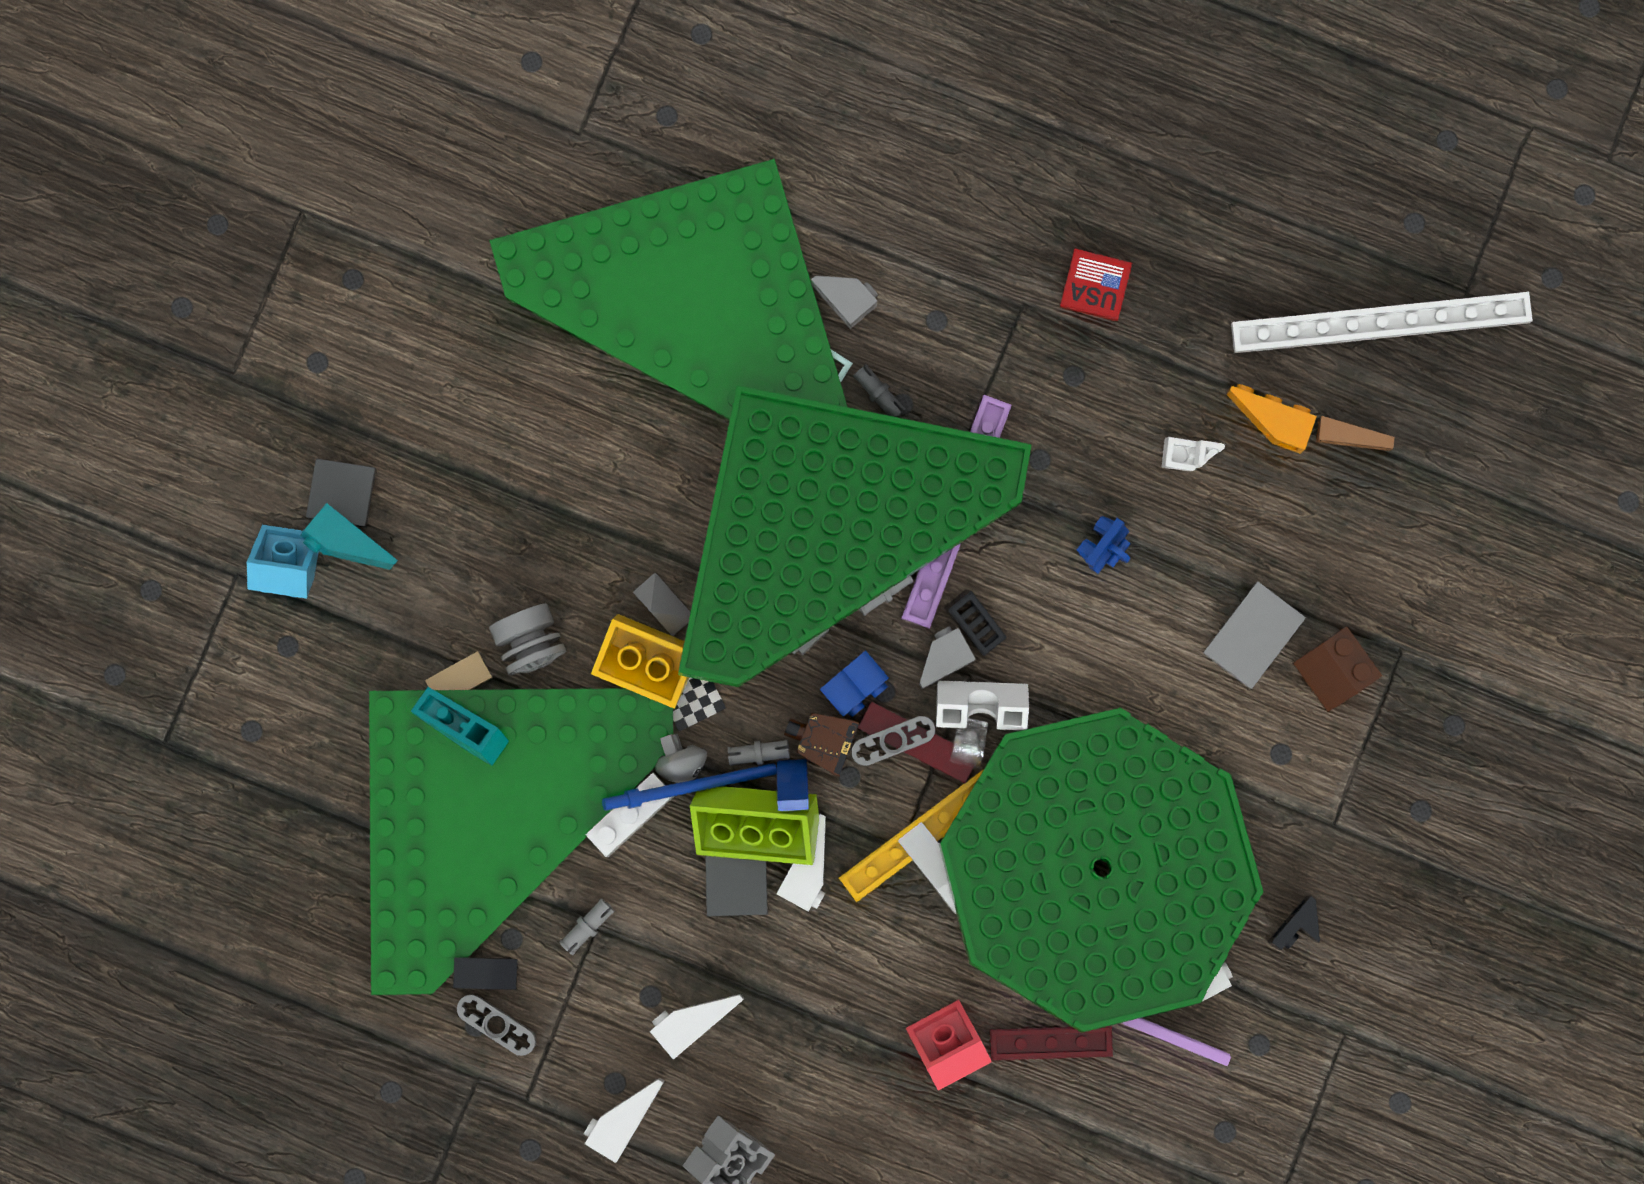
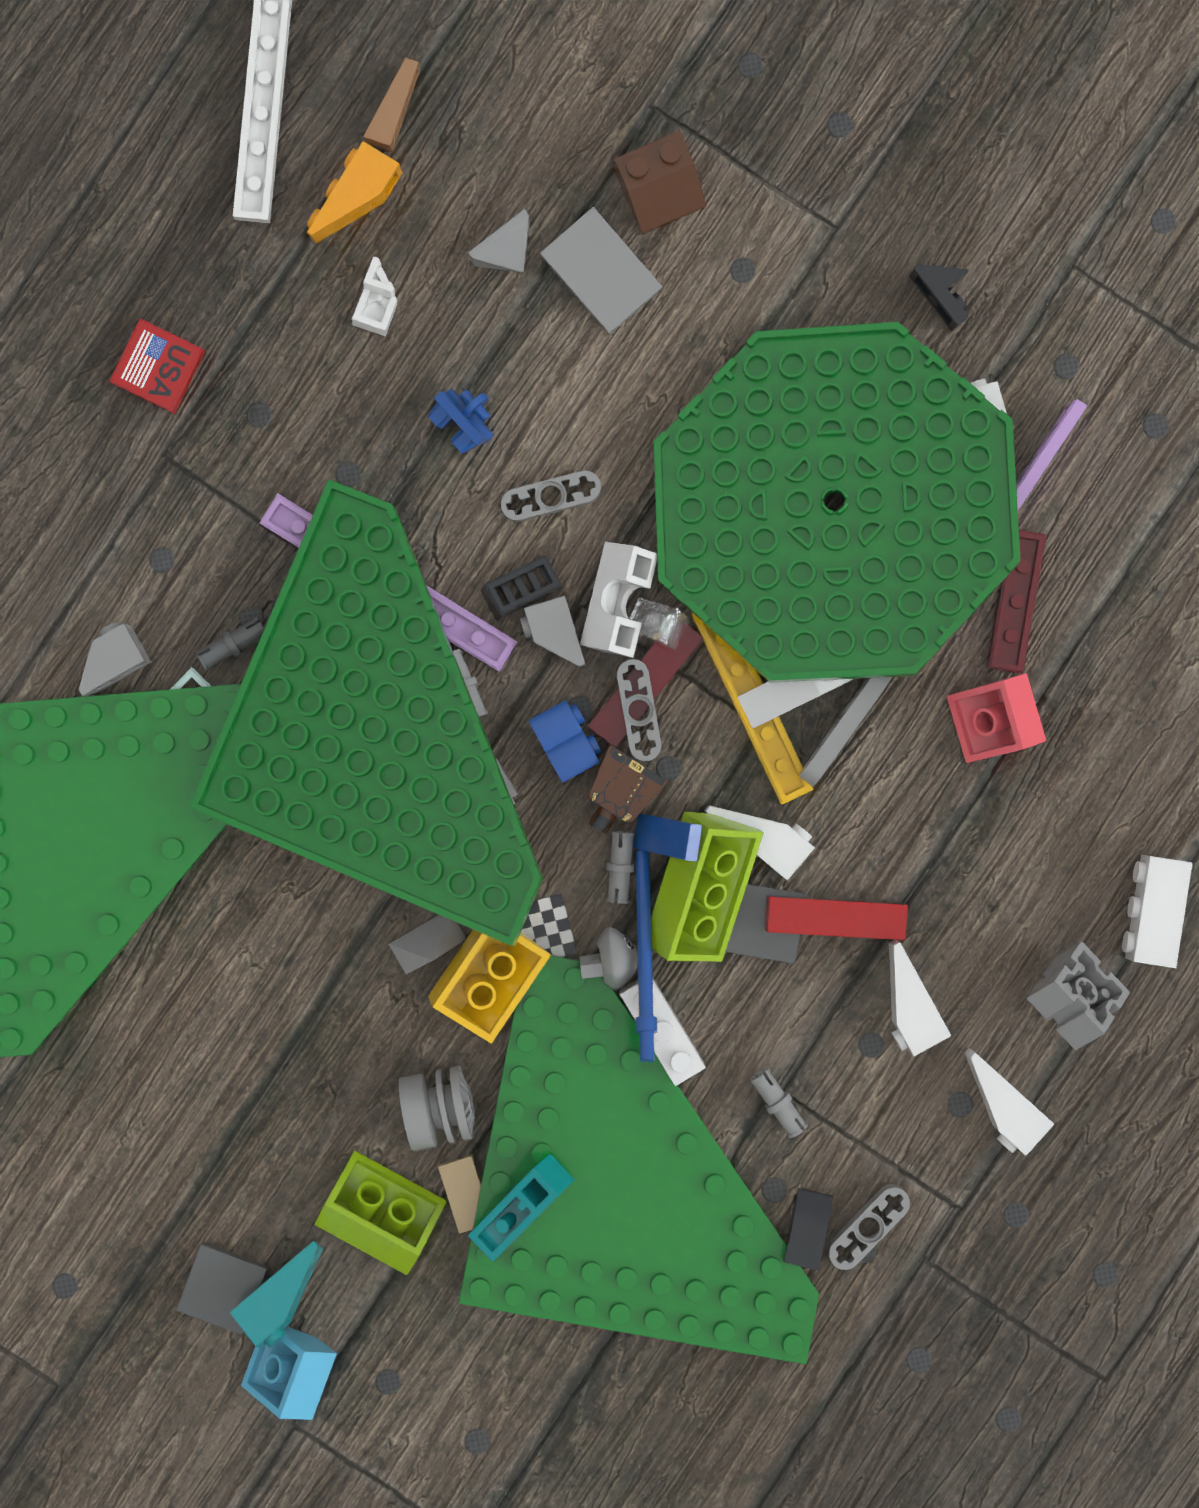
camera: 85 degrees left, 5 degrees up
(430, 611) = (380, 1213): none -> lime slope
(752, 943) = (836, 918): none -> red tile
(912, 916) = (843, 729): none -> light grey beam
(1040, 614) = (574, 481): none -> light grey beam
(1255, 551) = (505, 247): none -> light grey slope

